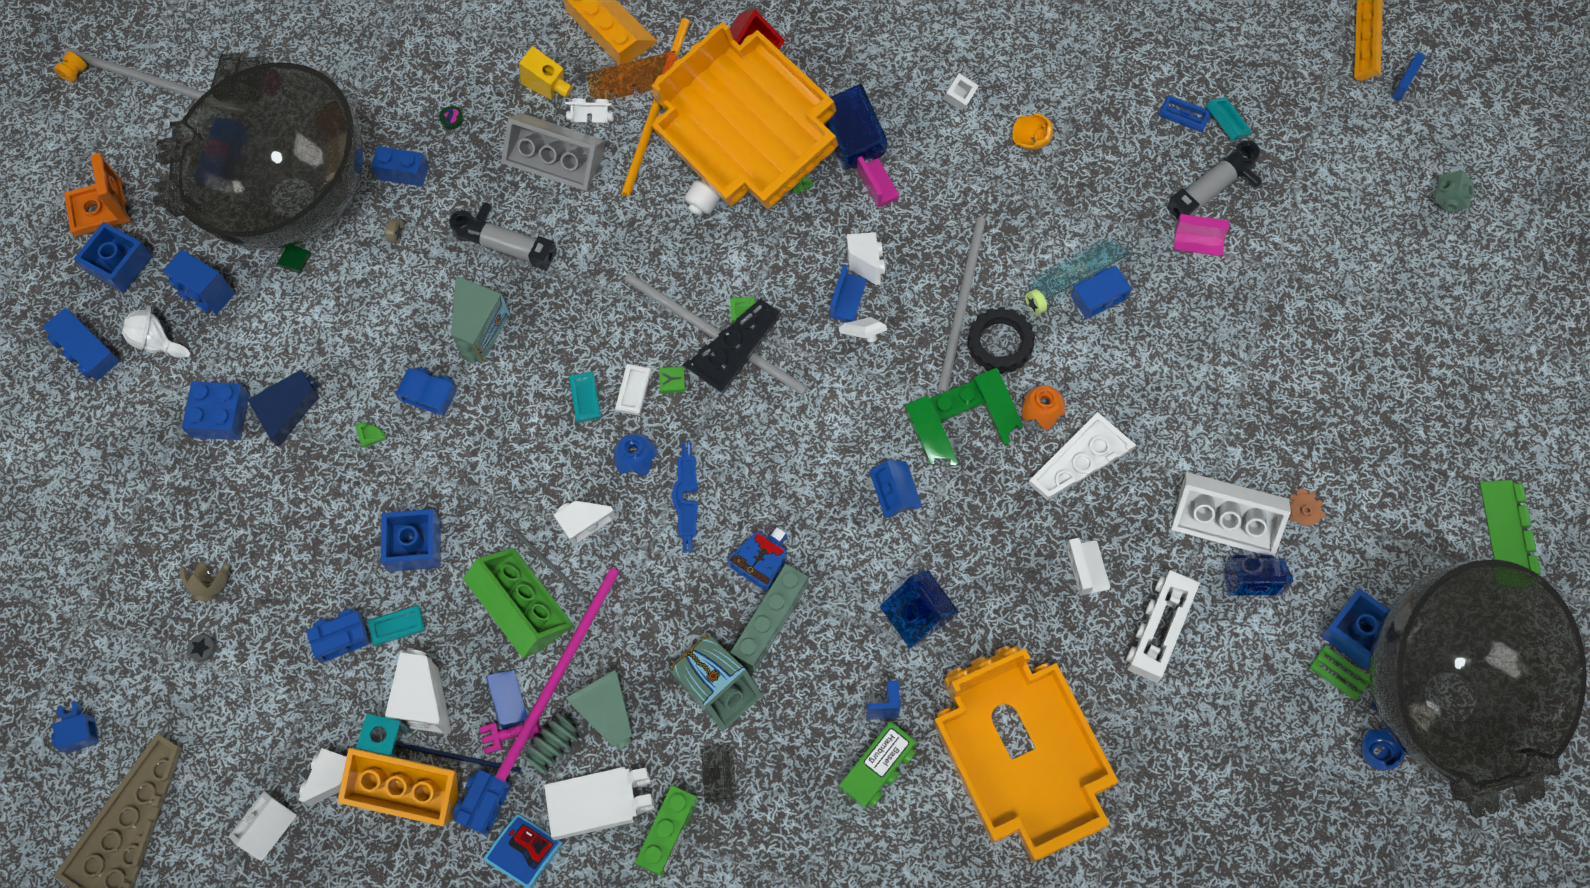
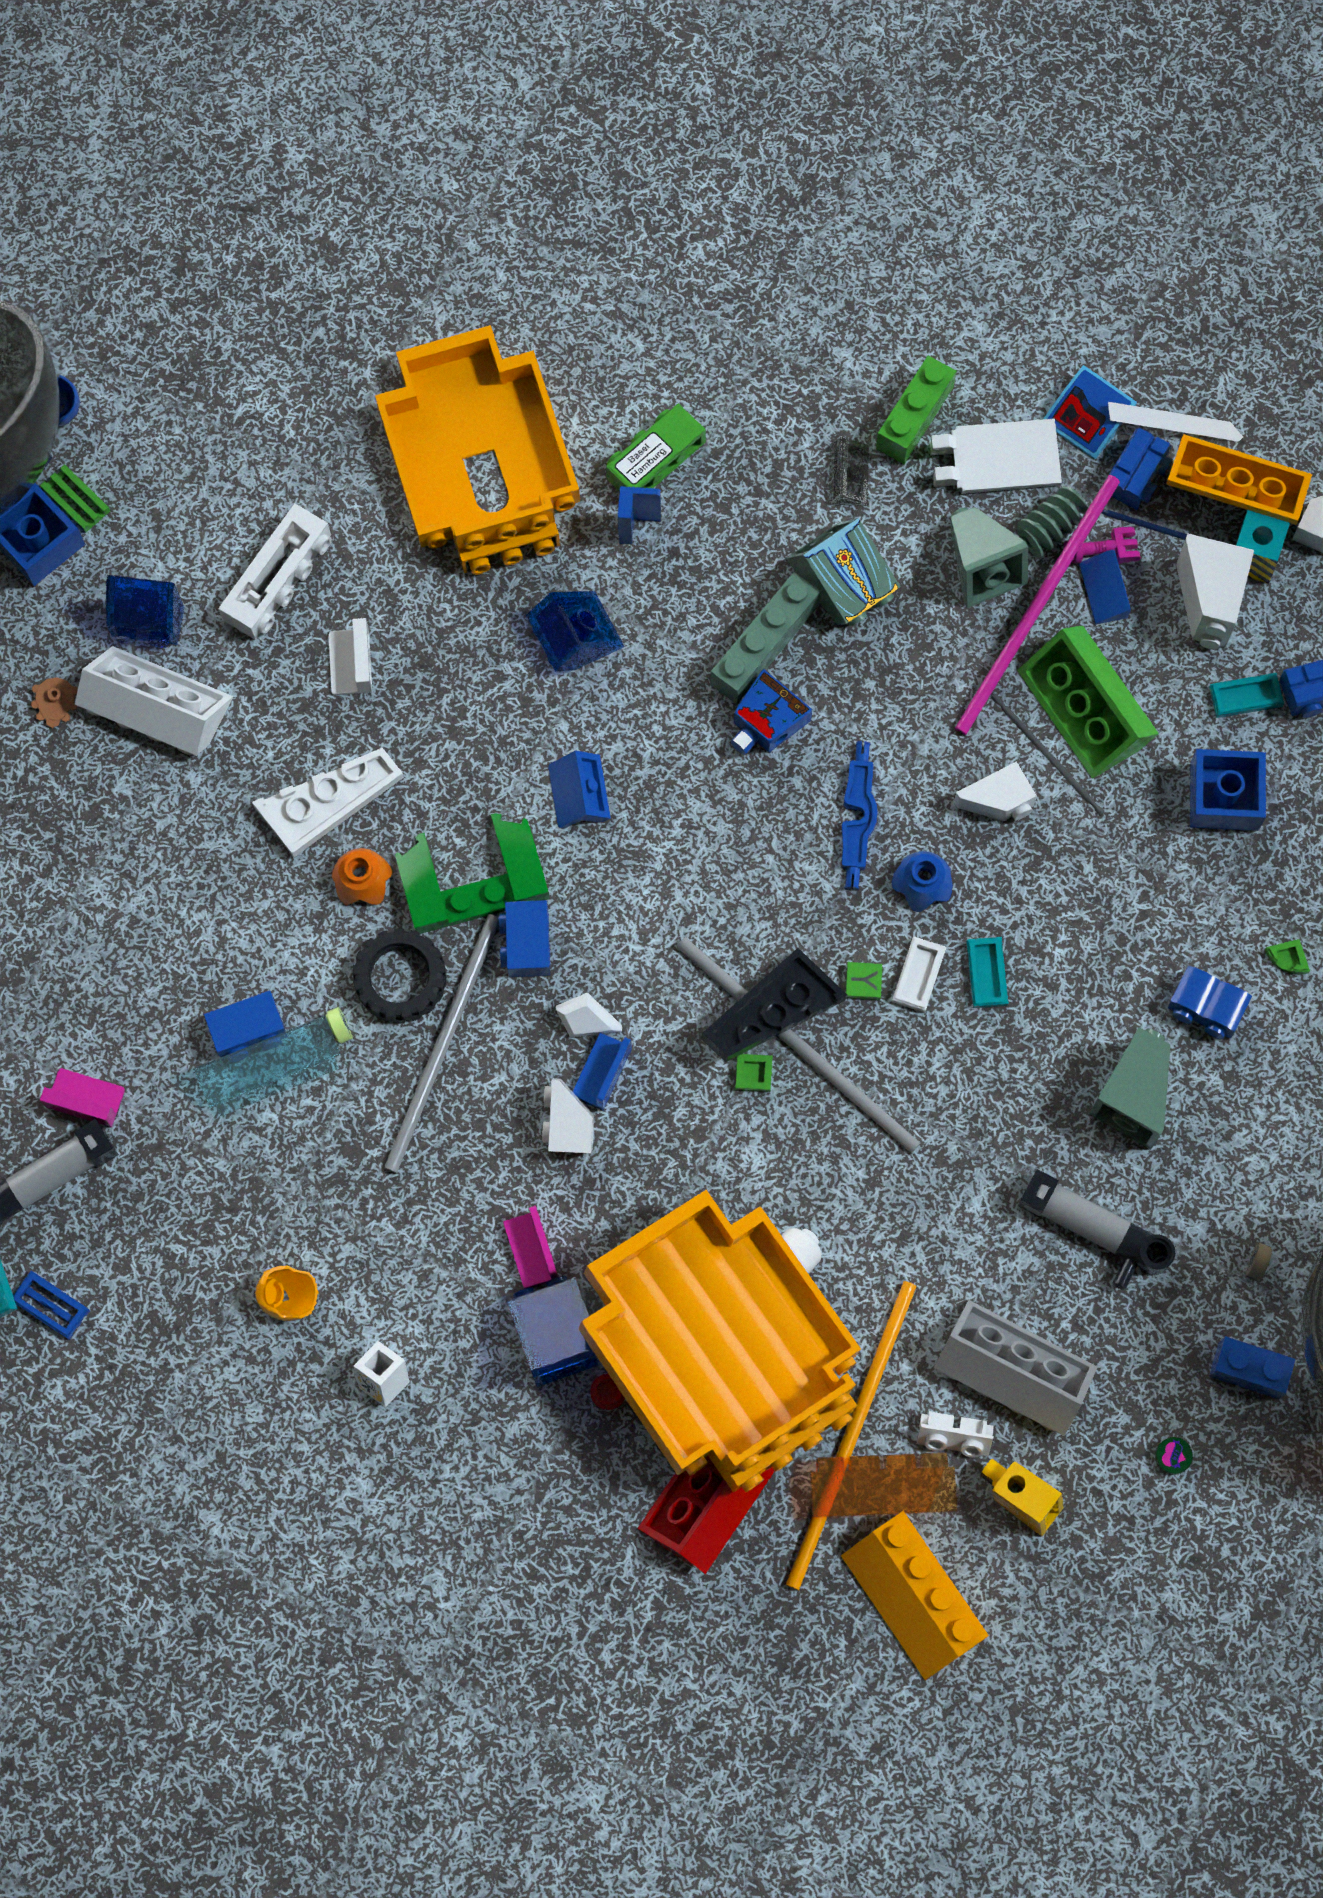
camera: 175 degrees left, 5 degrees up
(453, 849) = (1173, 421): none -> white sticker
(915, 373) = (526, 939): none -> blue brick

